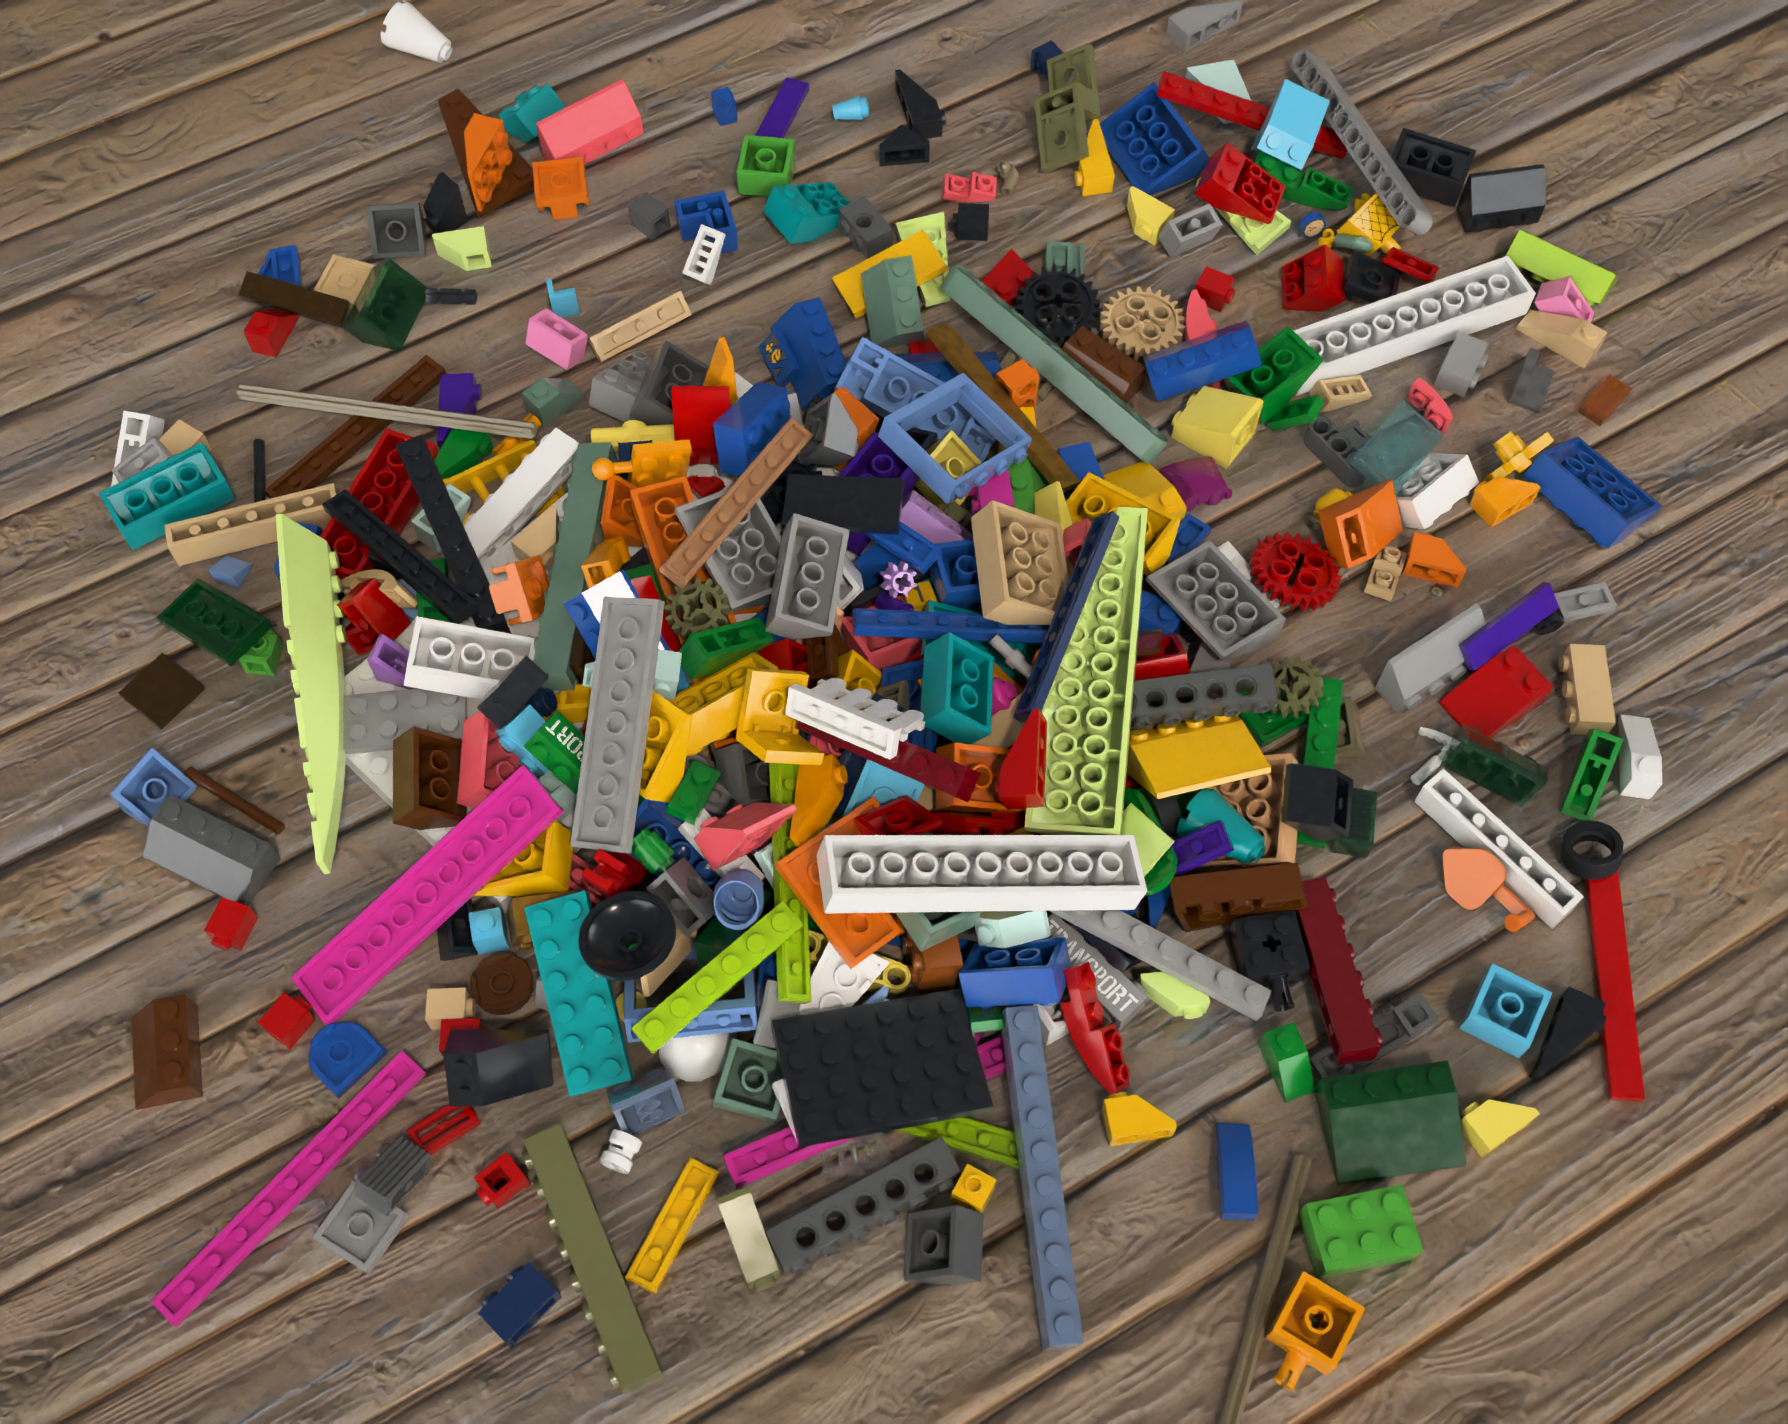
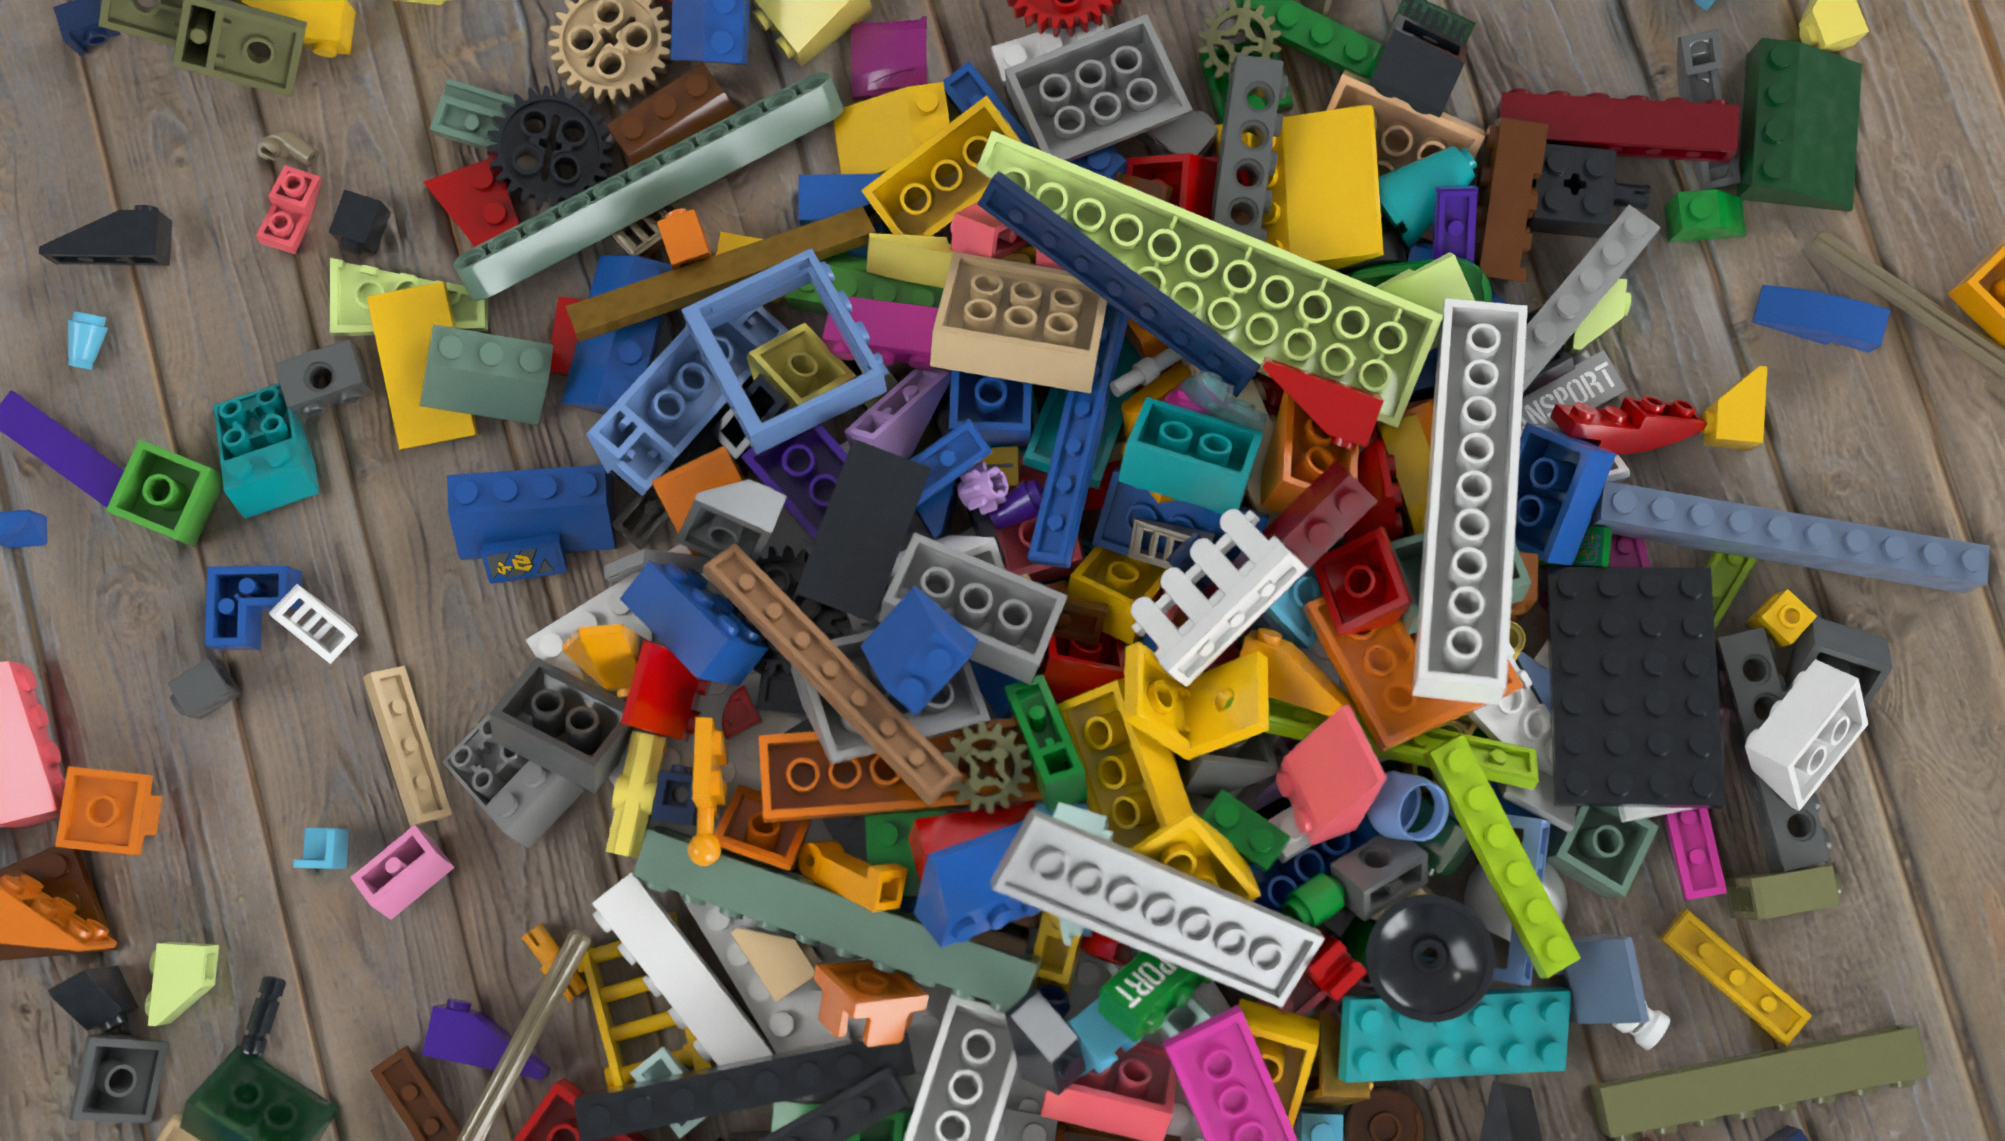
camera: 75 degrees left, 20 degrees up
(462, 451) = (568, 1053): green slope -> none
(551, 398) = (500, 897): sand green slope -> none
(763, 541) = (917, 649): none -> blue slope
(879, 1217) = (1807, 732): none -> white slope
(904, 147) = (188, 281): black slope -> none
(1006, 697) = (1215, 400): none -> clear light blue slope
(1360, 1231) = (1920, 205): bright green brick -> none

